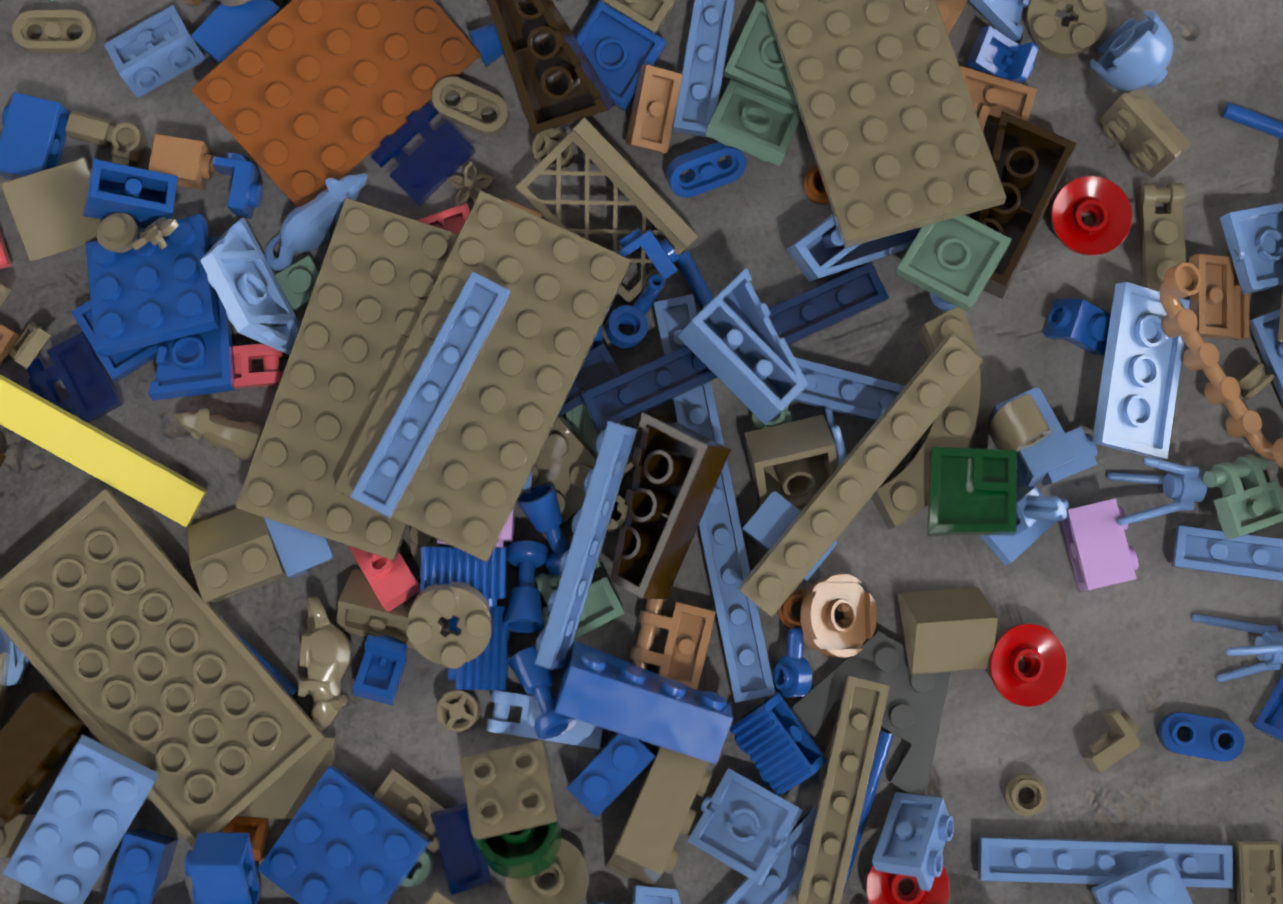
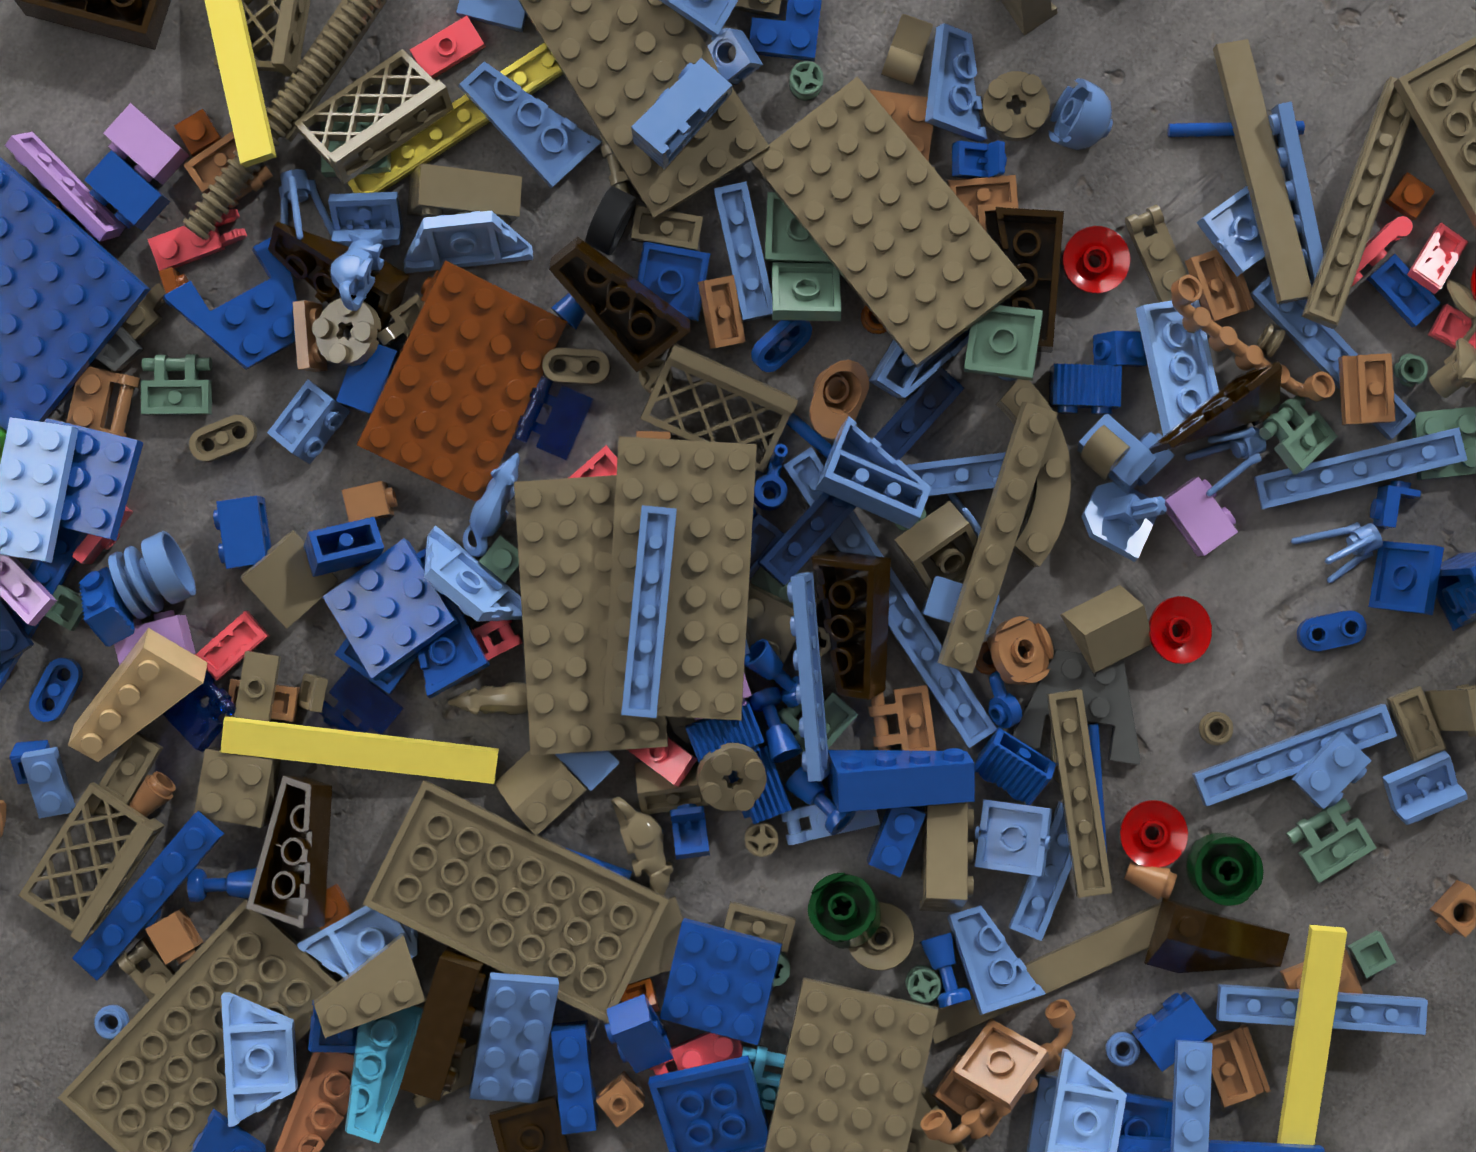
camera: 20 degrees left, 5 degrees up
(117, 232) = (347, 580): dark tan plate -> none
(125, 138) = (317, 500): dark tan bar -> none
(155, 233) = (379, 568): dark tan plant -> none
(245, 186) = (429, 504): blue bracket -> none
(458, 851) = (805, 941): clear blue tile -> none
(470, 184) = (602, 428): dark tan plant -> none
(508, 789) = (826, 883): dark tan bracket -> none
(660, 253) = (774, 427): blue bracket -> none
(747, 241) = (837, 395): none -> medium nougat piece
(914, 838) = (1144, 795): medium blue bracket -> none
(972, 492) = (1088, 517): dark green plate -> none
(1025, 351) = (1085, 387): none -> blue brick
(1110, 749) = (1266, 668): dark tan bracket -> none
(1144, 132) = (1113, 175): dark tan bracket -> none
(1187, 436) = (1238, 403): none -> dark brown wedge

